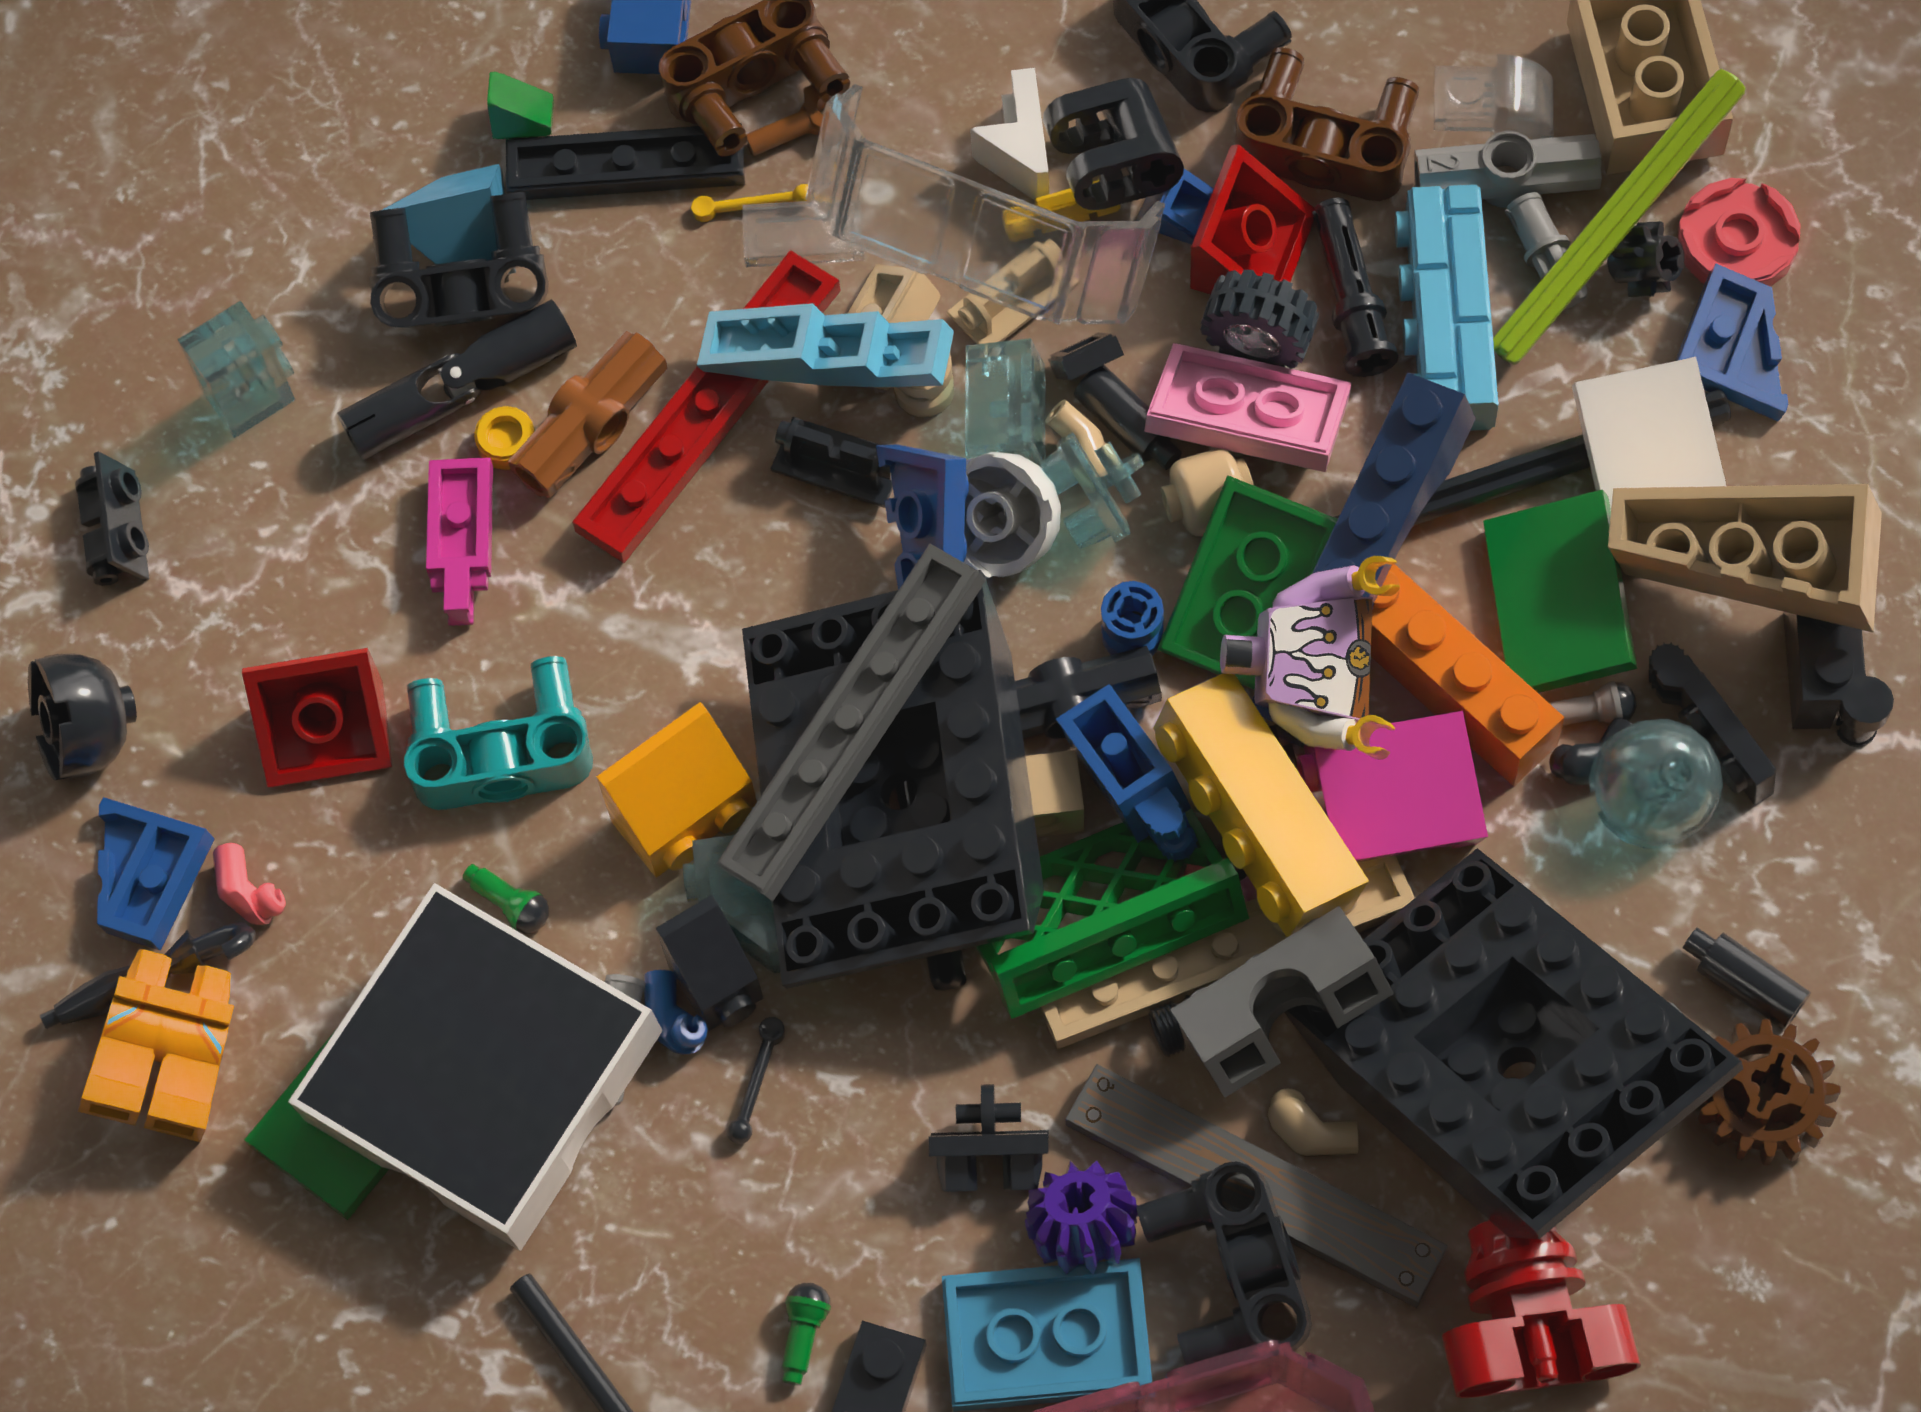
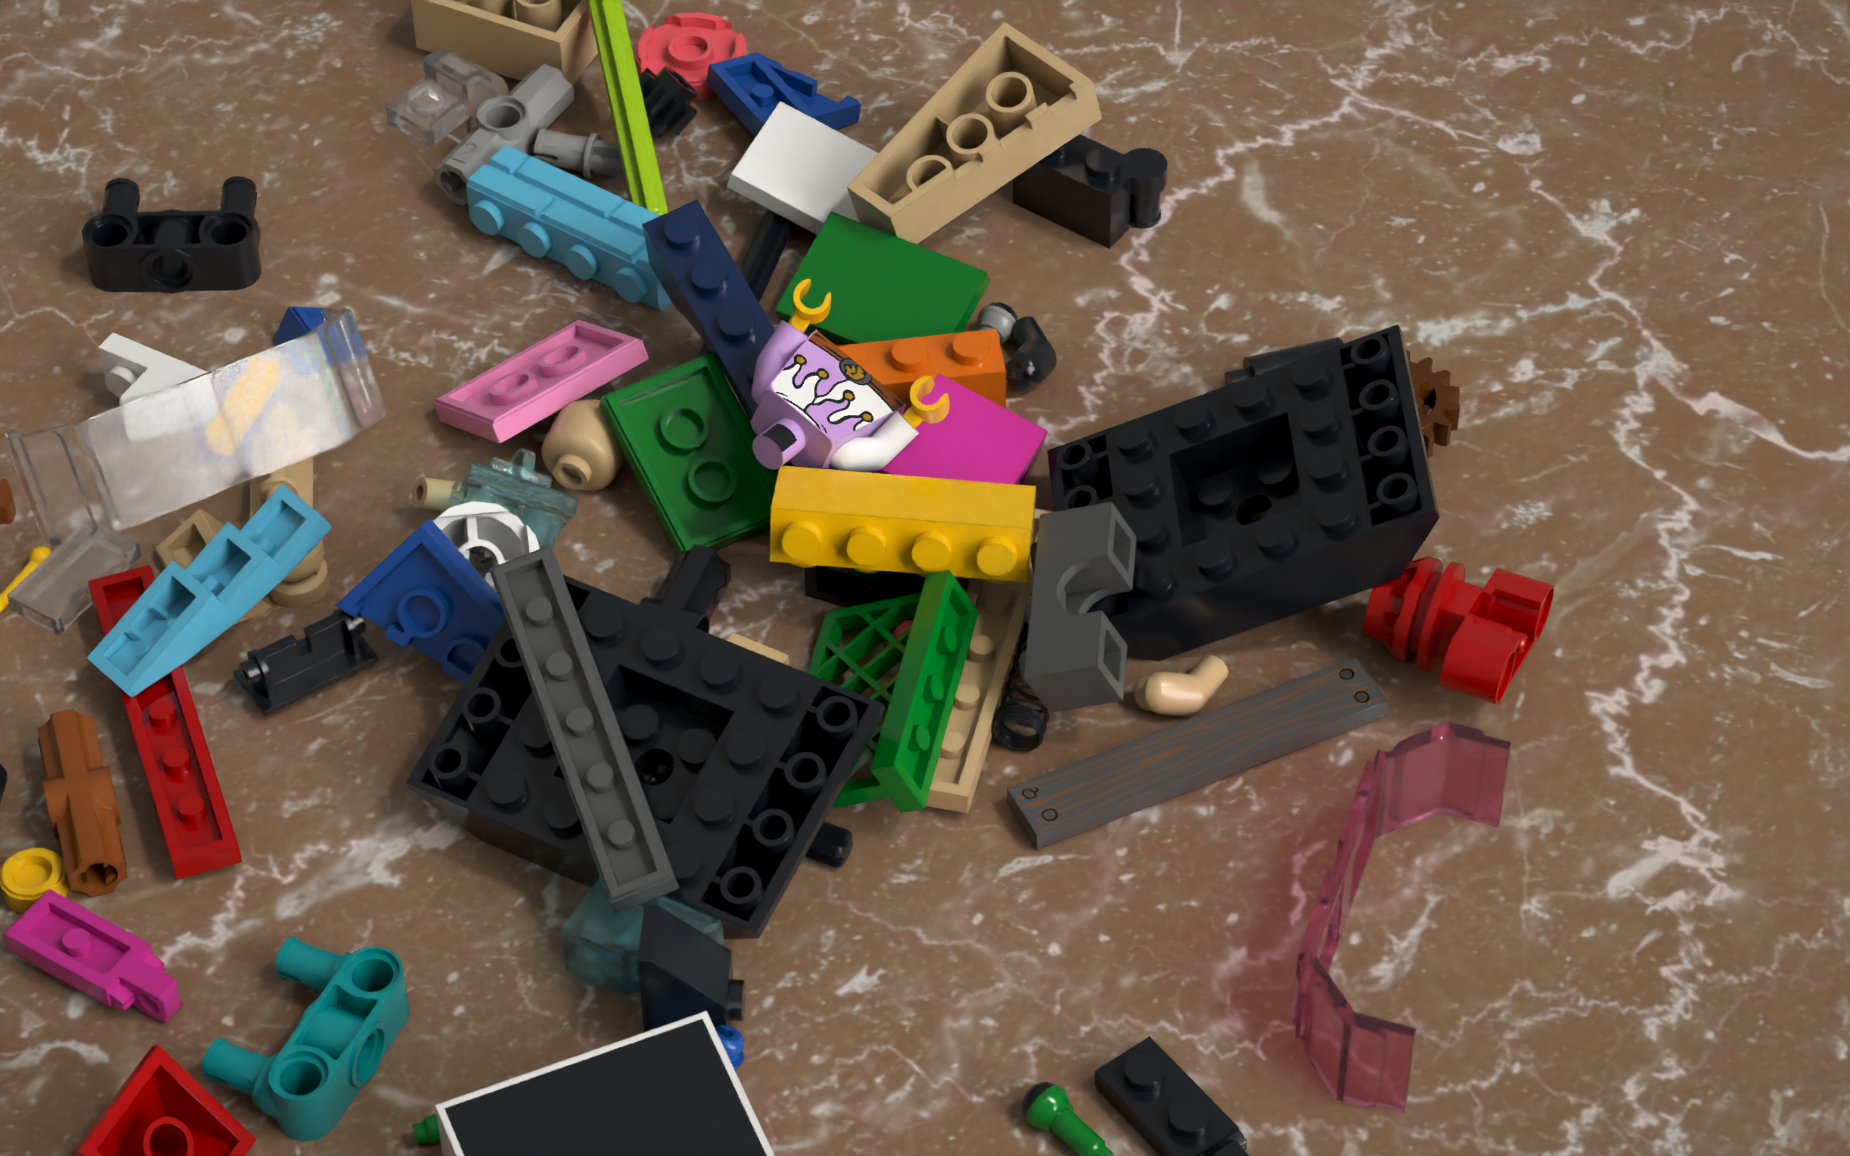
camera: 60 degrees left, 20 degrees down
(677, 791) = (506, 920): light orange slope -> none
(771, 1034) = (772, 1001): black hinge -> none
(959, 1150) = (1005, 919): black hips -> none
(1005, 400) = (369, 512): clear light blue hinge -> none
(1044, 1334) = (1209, 960): dark azure tile -> none
(1081, 1217) = (1138, 861): dark purple gear -> none
(1085, 356) = (388, 453): black tile -> none
(1124, 416) = (453, 459): black cylinder -> none
(1128, 138) = (245, 314): black connector -> none
(1130, 772) = (792, 604): blue hinge -> none
(1132, 629) = (646, 550): blue wheel -> none
(1249, 224) = (392, 306): red slope -> none
(1253, 1254) = (1269, 769): black piece -> none
(1259, 319) = (478, 324): black wheel -> none
(1321, 143) = (362, 222): reddish brown piece -> none
(1358, 311) = (525, 280): black pin -> none
(1656, 783) = (1092, 321): clear light blue cylinder -> none
(1741, 758) = (1069, 272): black hinge -> none

